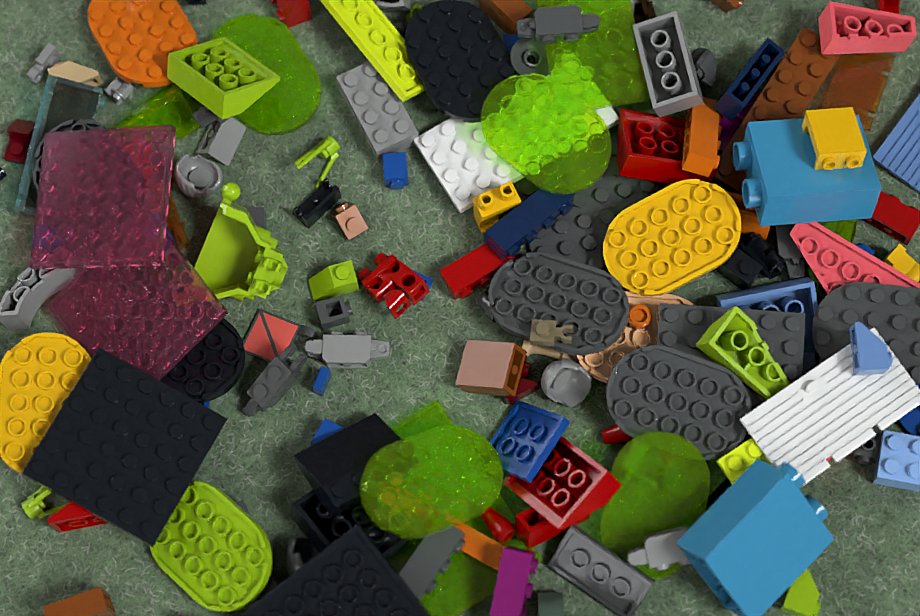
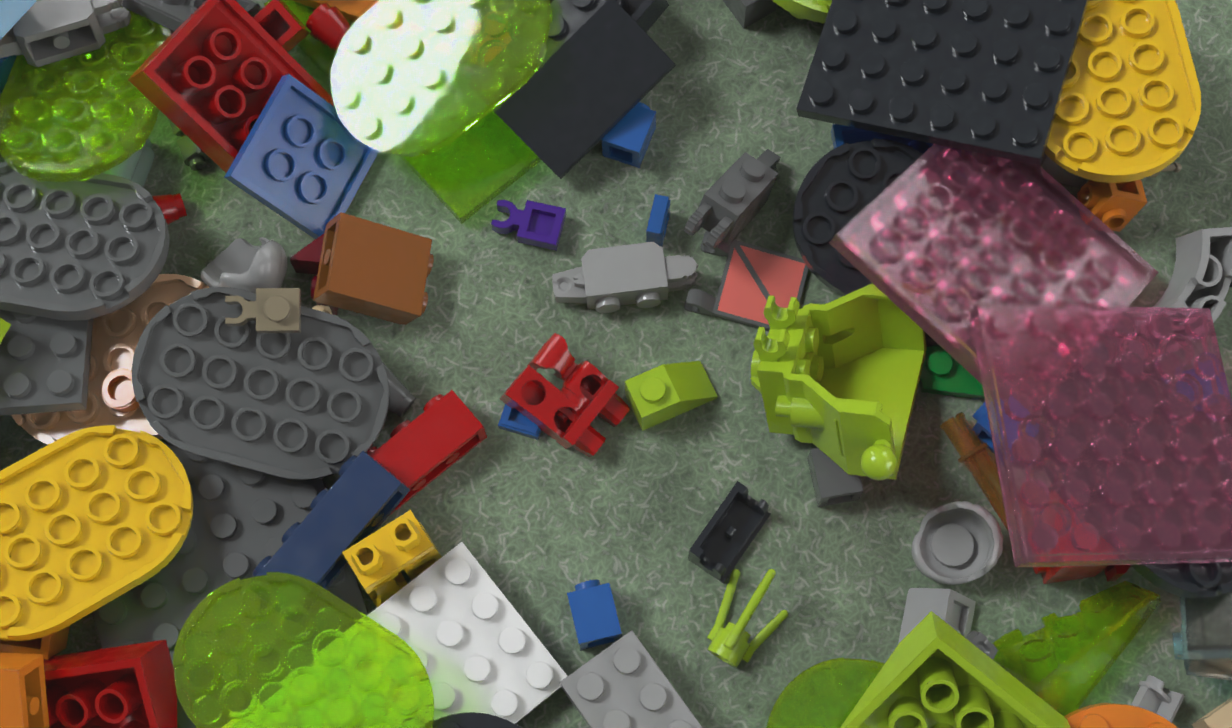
camera: 170 degrees right, 0 degrees up
(327, 307) = (665, 324): dark grey brick -> none
(349, 219) = (665, 512): nougat bracket -> none
(393, 391) = (536, 224): none -> dark purple plate

